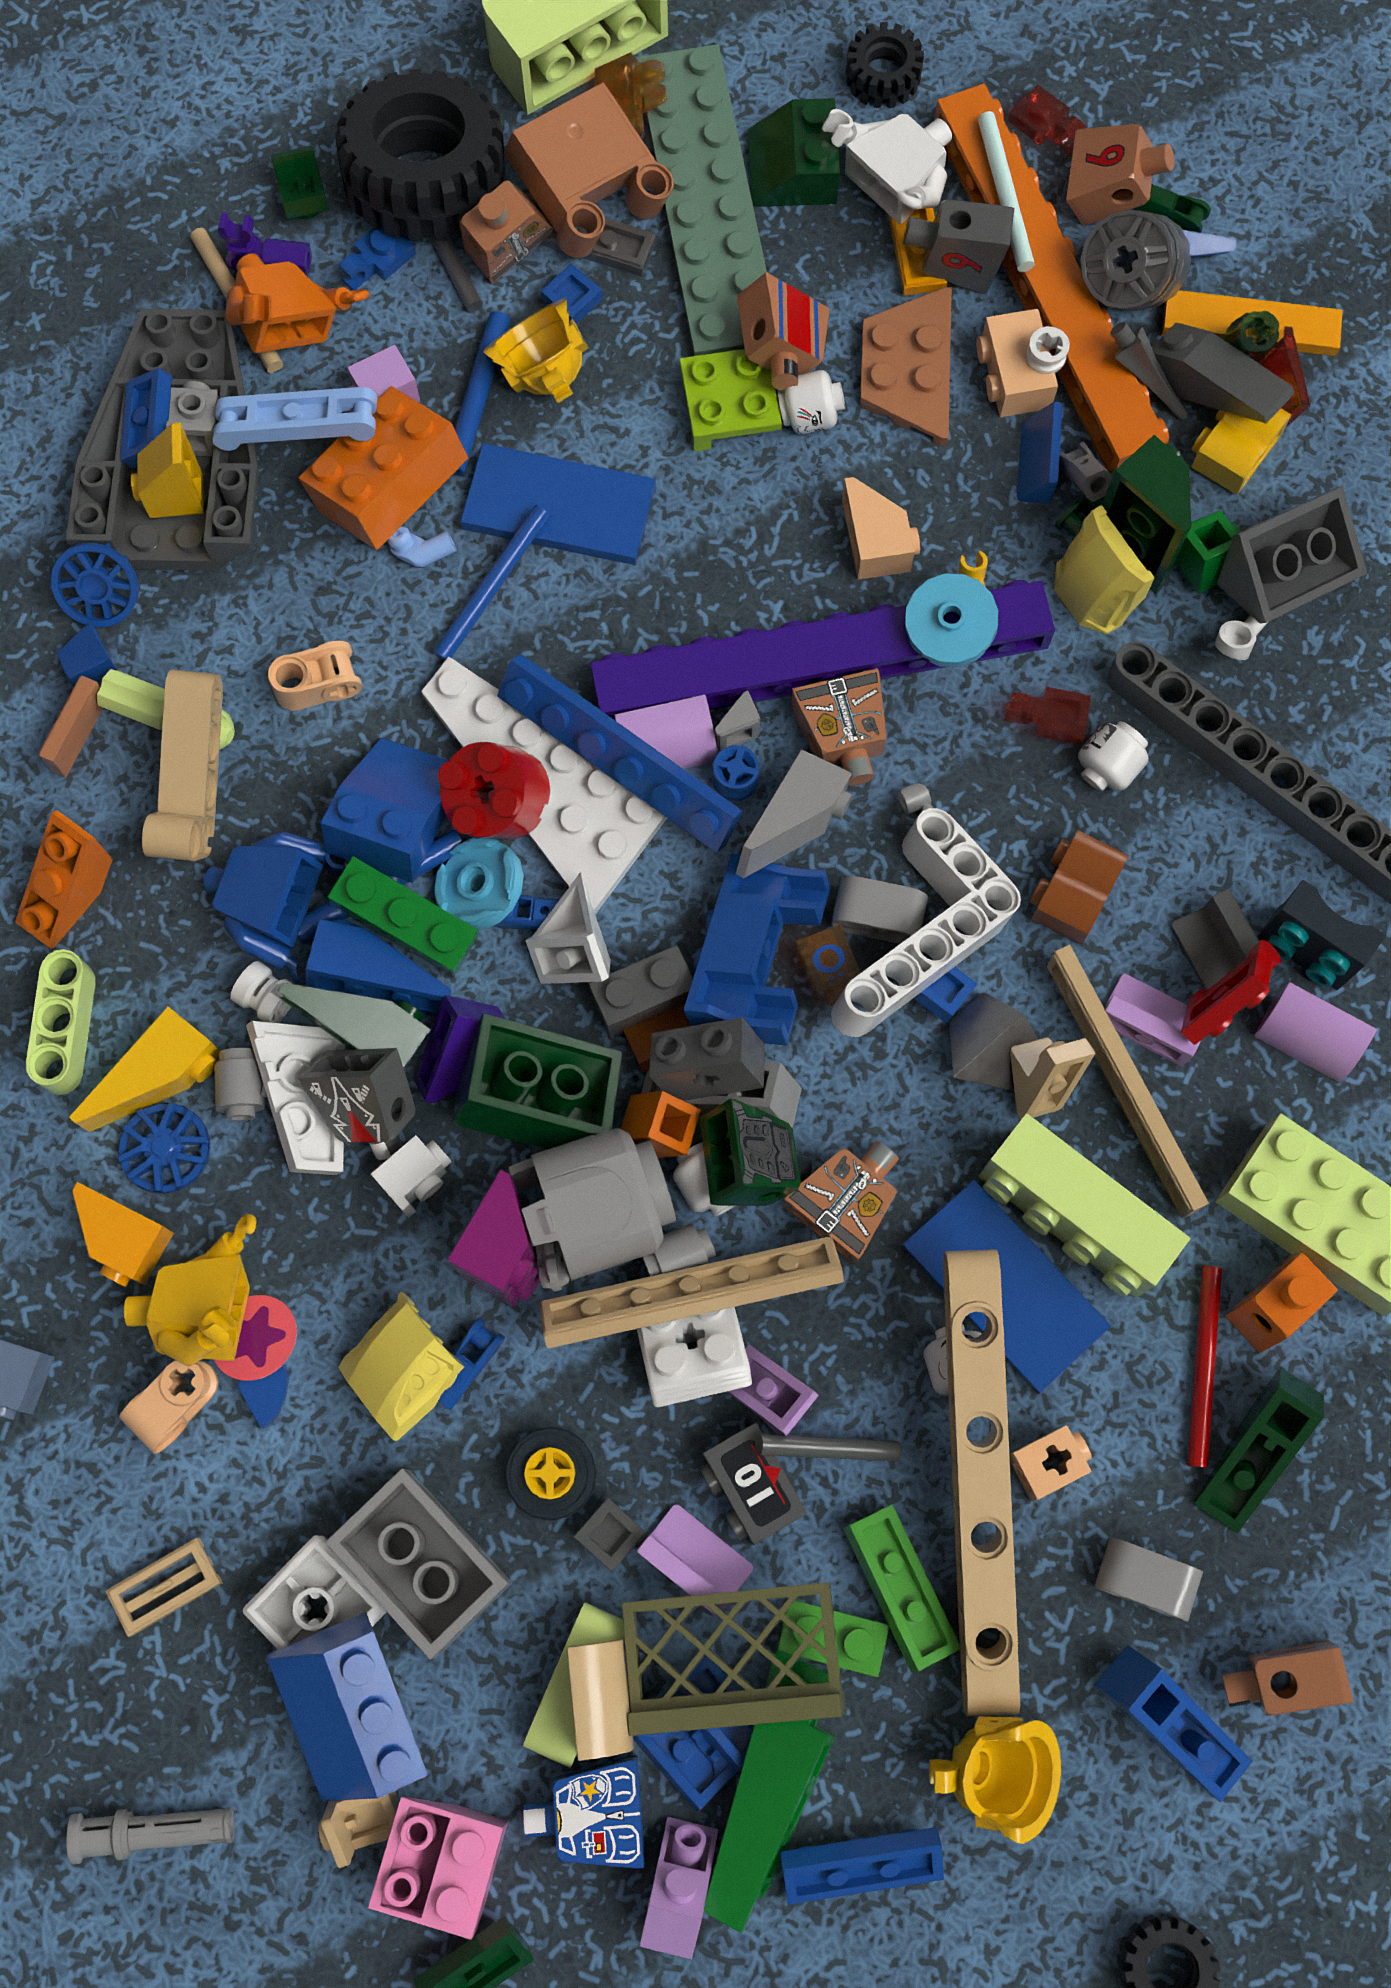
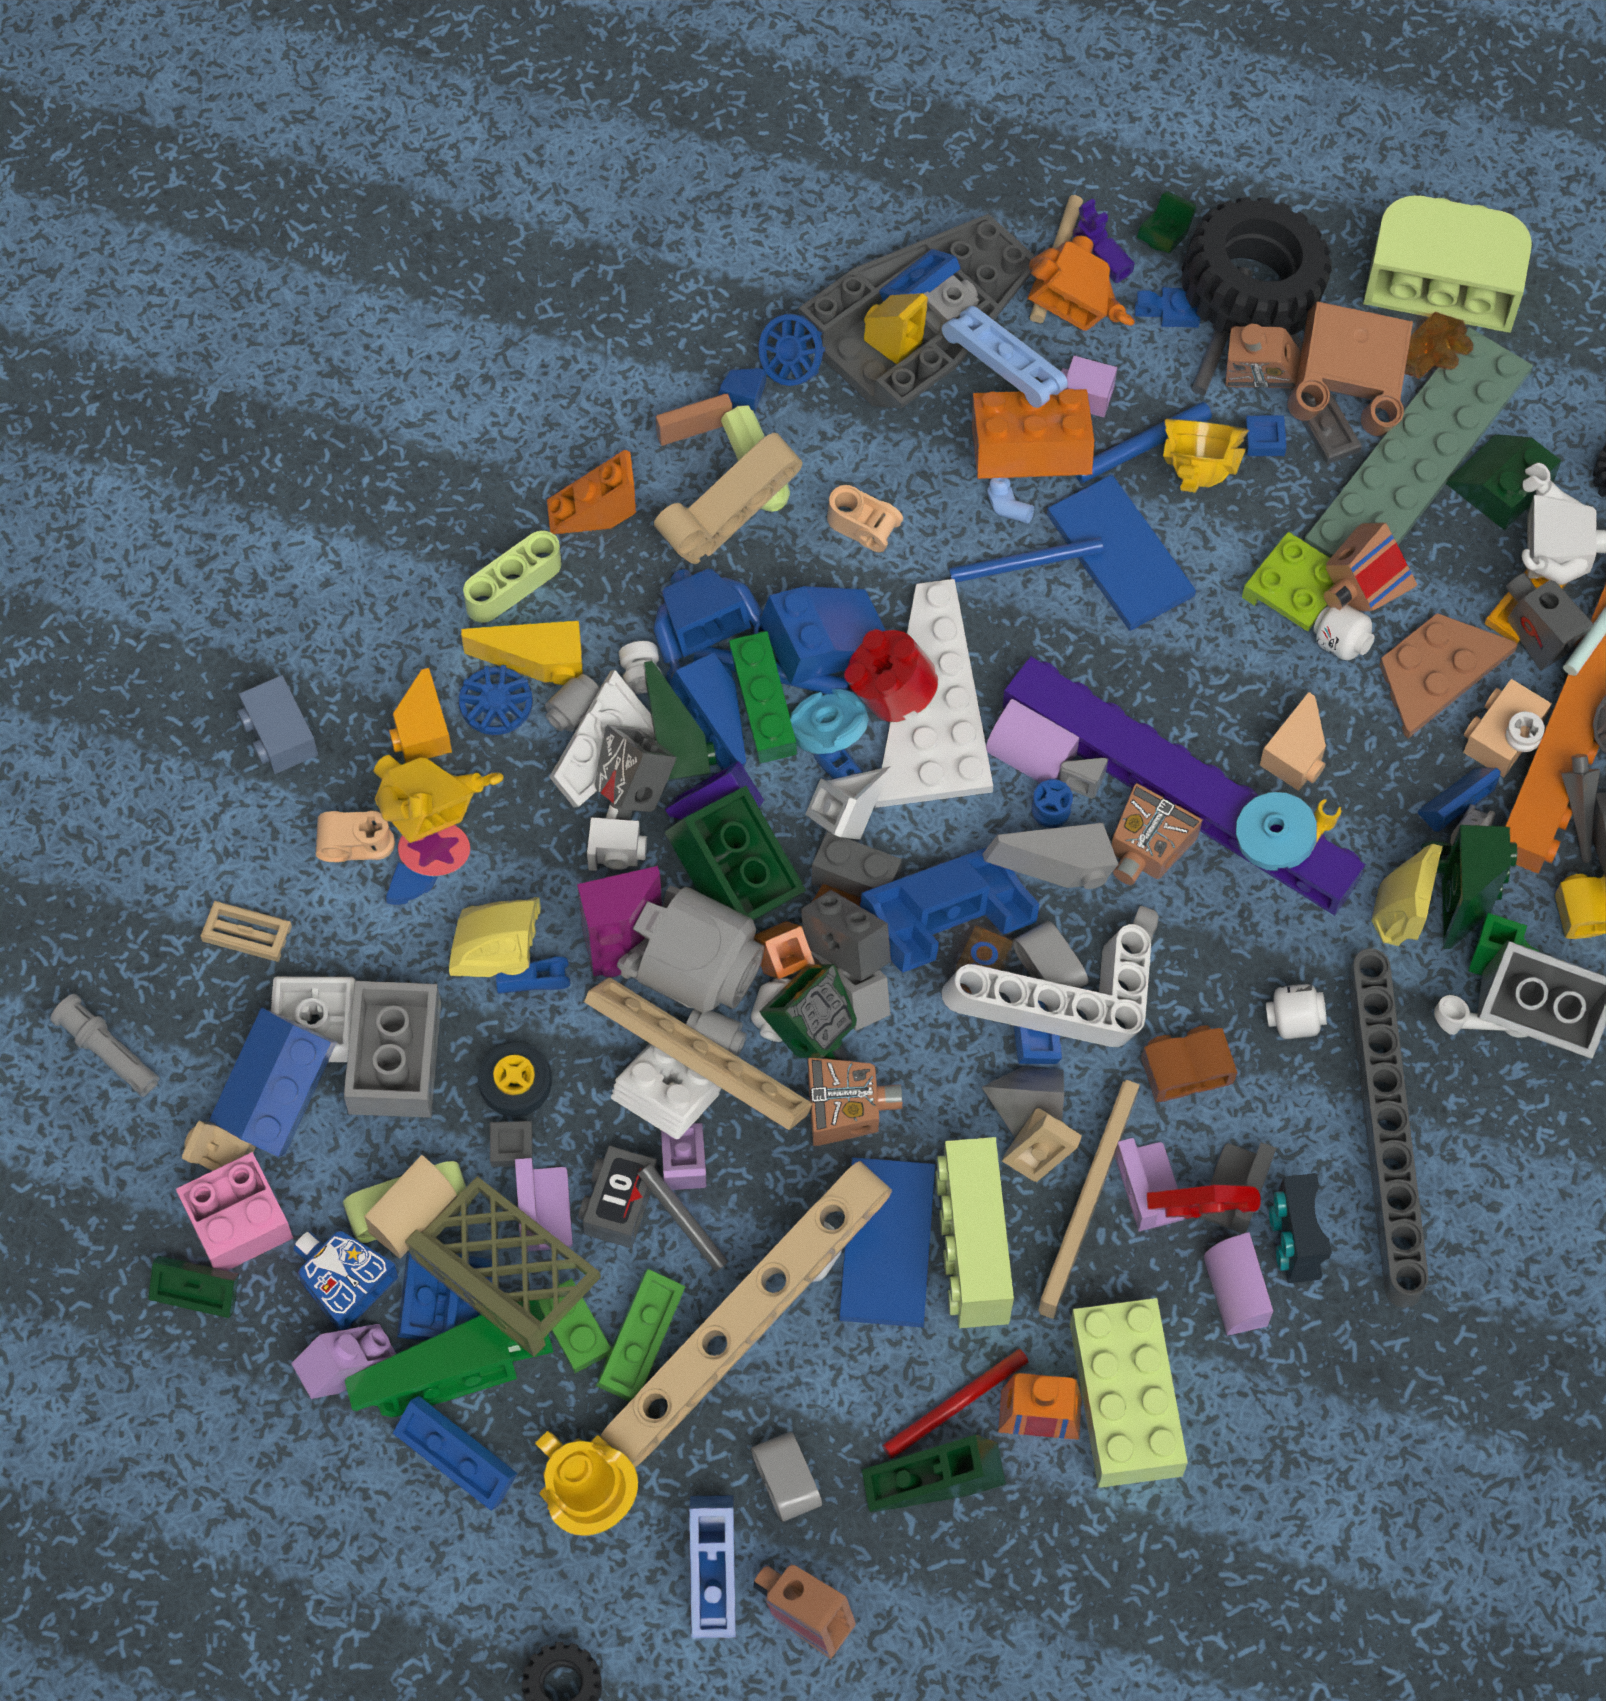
camera: 45 degrees right, 10 degrees down
(619, 753) = (990, 723): blue plate -> none
(1029, 1466) = (792, 1344): light nougat brick -> none
(1058, 713) = (1291, 955): clear red plate -> none

